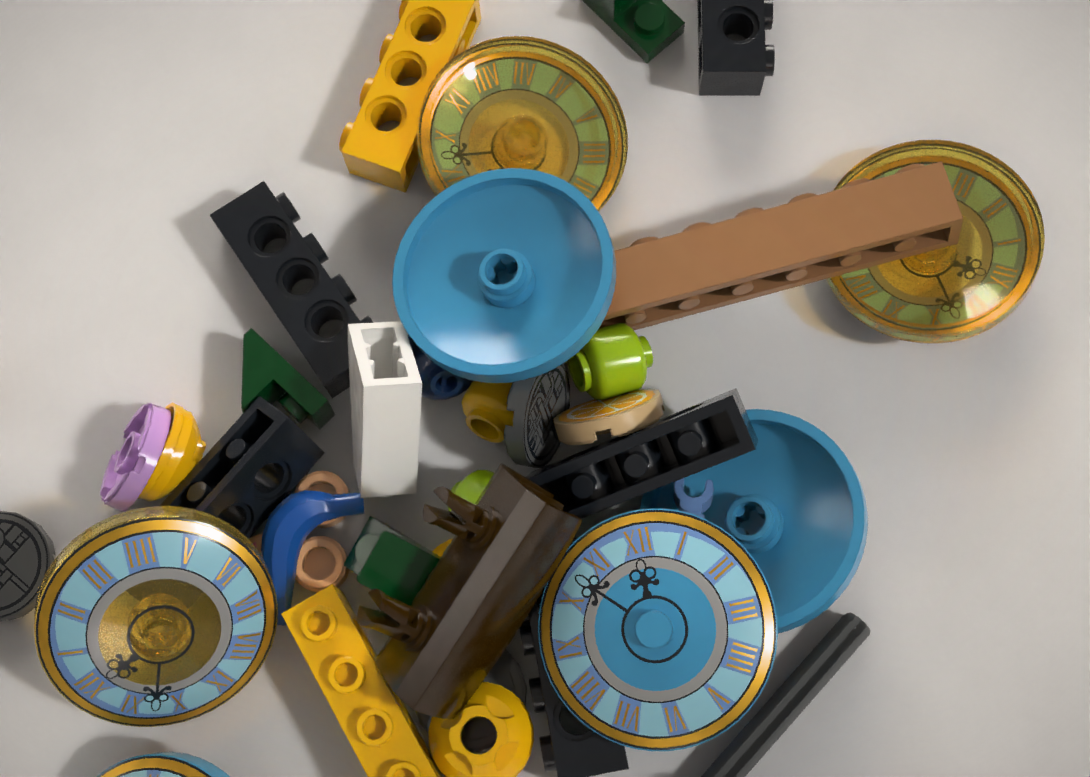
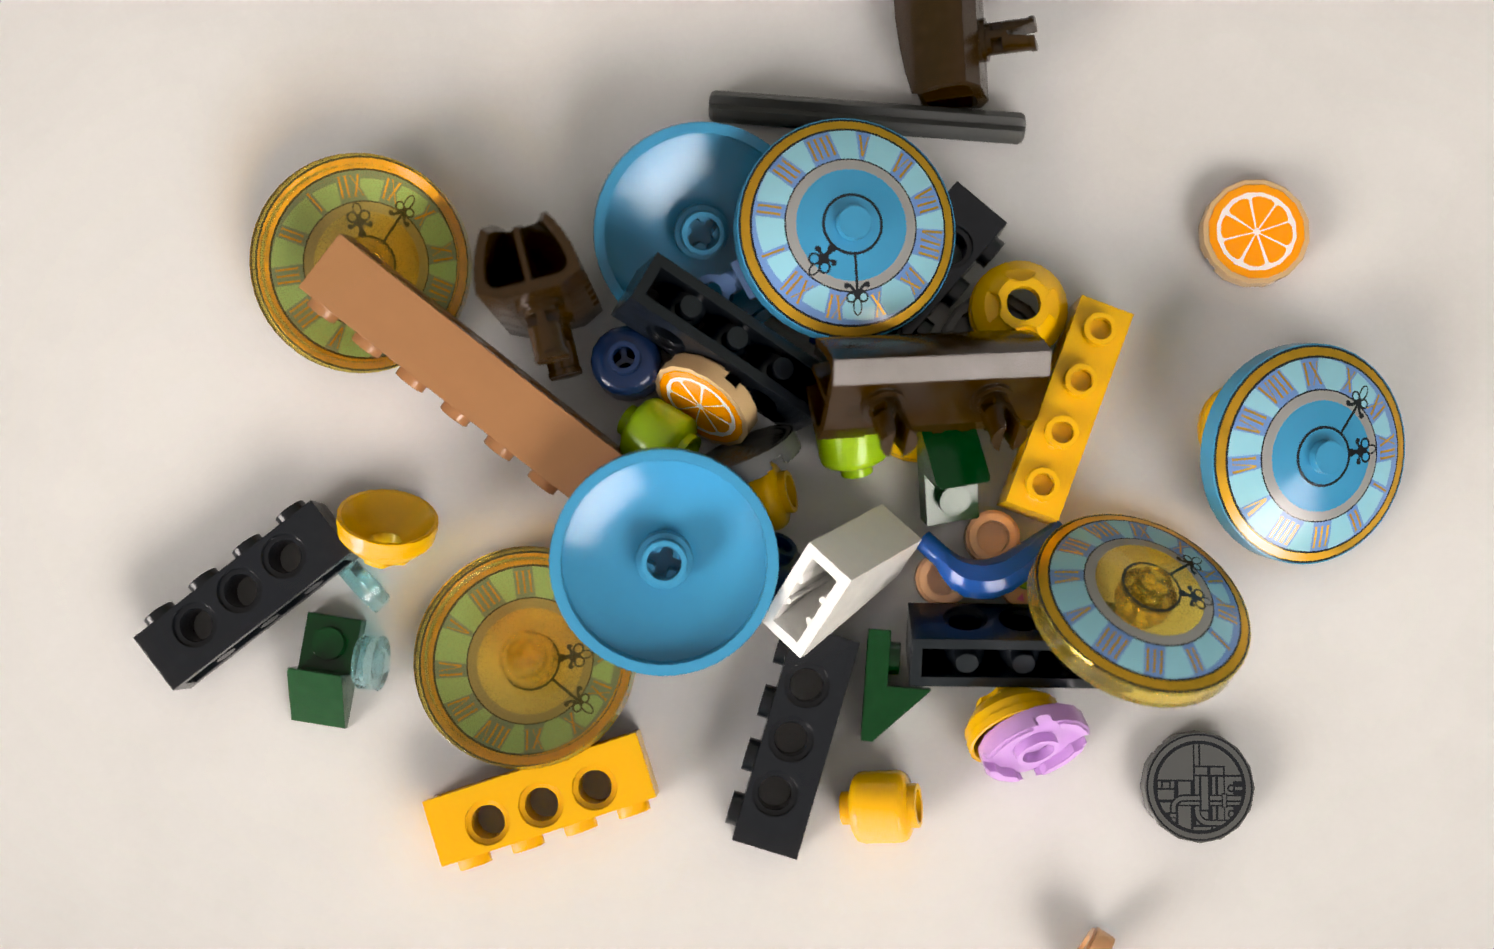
camera: 130 degrees left, 10 degrees up
(194, 312) = (882, 806): none -> yellow head
(611, 38) = (370, 662): none -> clear light blue tile
(671, 72) = (365, 586): none -> clear light blue tile
(687, 364) = (612, 354): none -> dark blue head
(715, 123) = (386, 526): none -> yellow piece
(809, 334) = (536, 289): none -> dark brown piece

